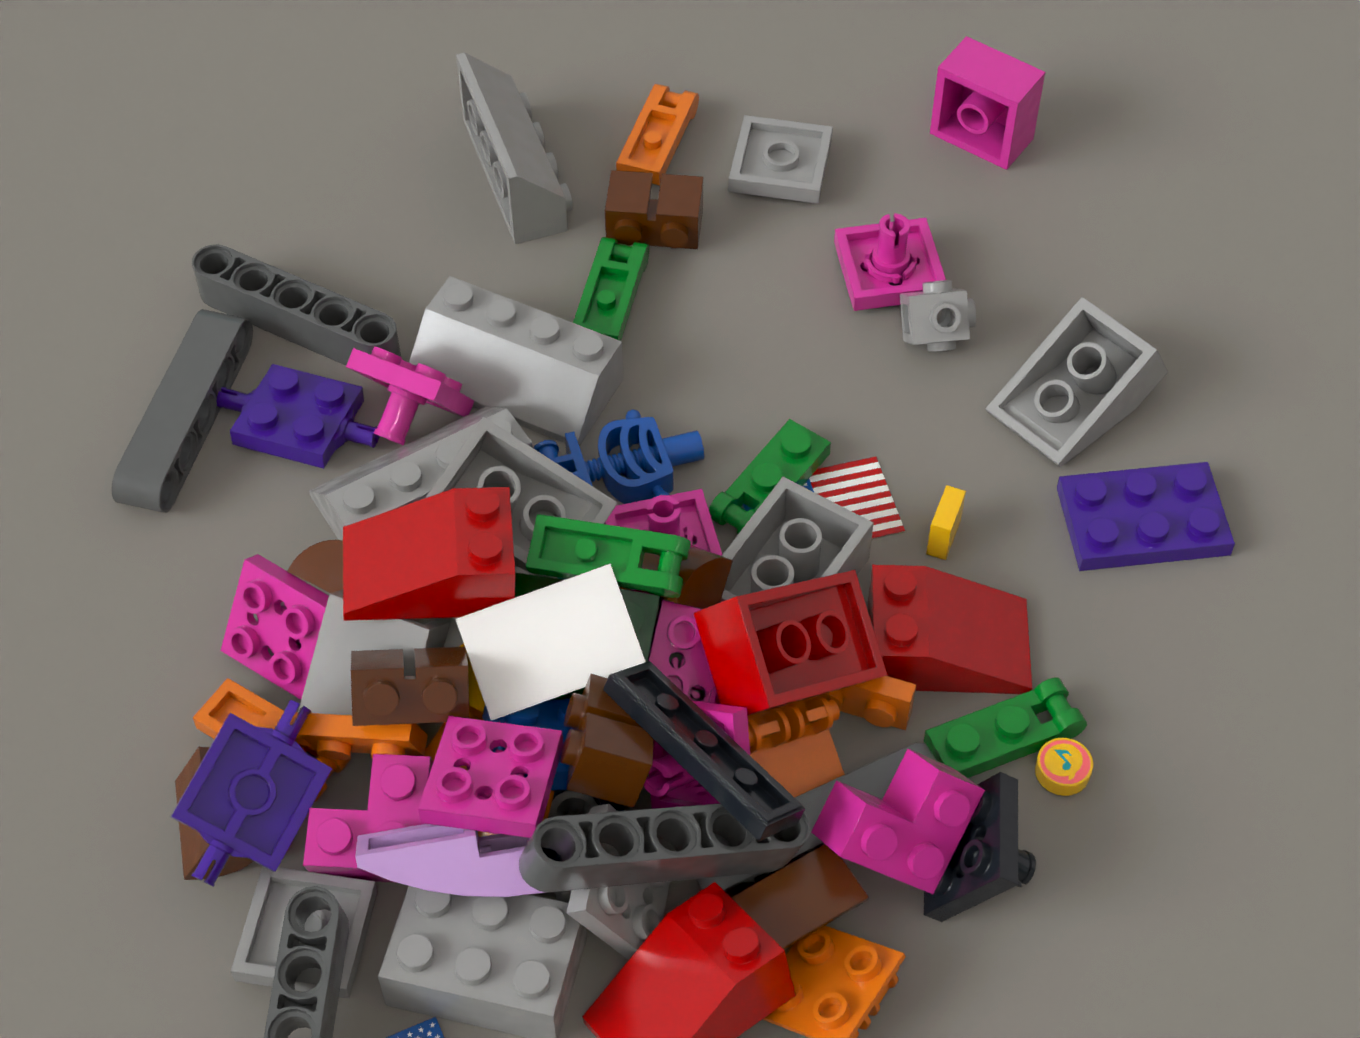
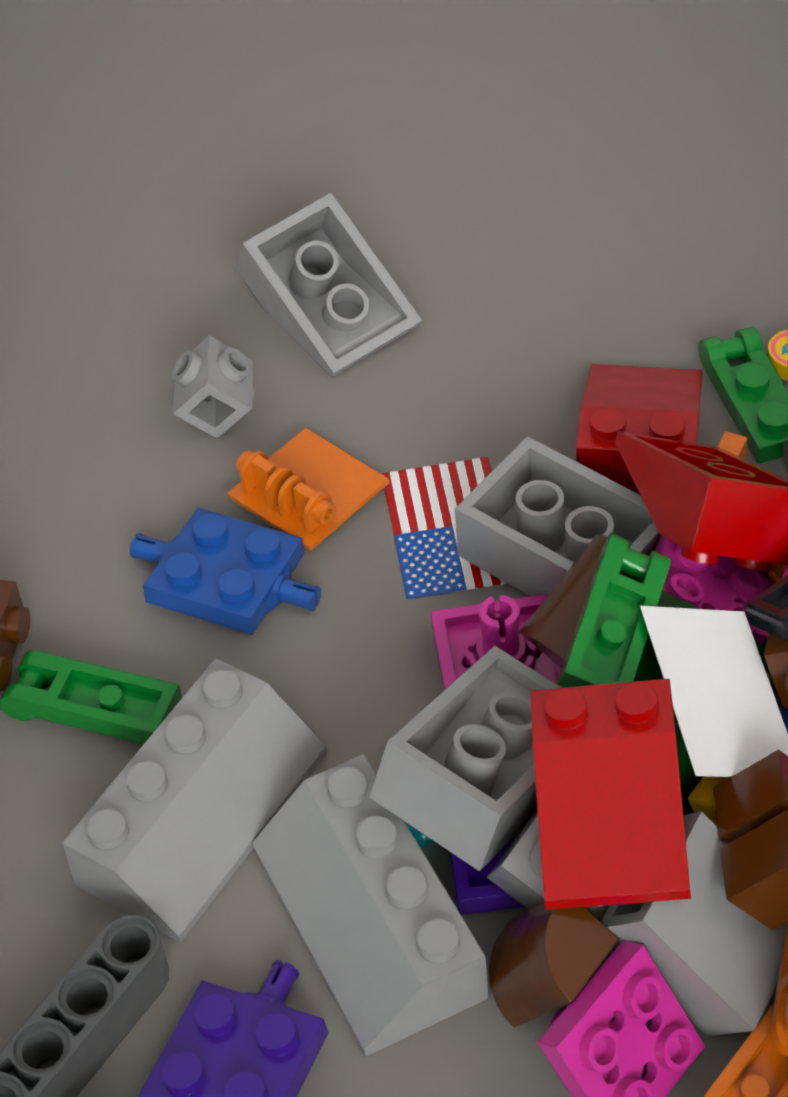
camera: 80 degrees left, 5 degrees down
(408, 388) = (240, 902): dark pink plate -> none
(654, 456) = (364, 688): blue torso -> none
(746, 358) = (225, 571): none -> blue plate
(789, 454) = (411, 558): green plate -> none
(845, 400) = (305, 487): none -> orange hinge
(884, 255) = (111, 417): dark pink plate -> none
(945, 522) = (498, 407): yellow tile -> none
(1144, 516) = (494, 268): dark purple plate -> none

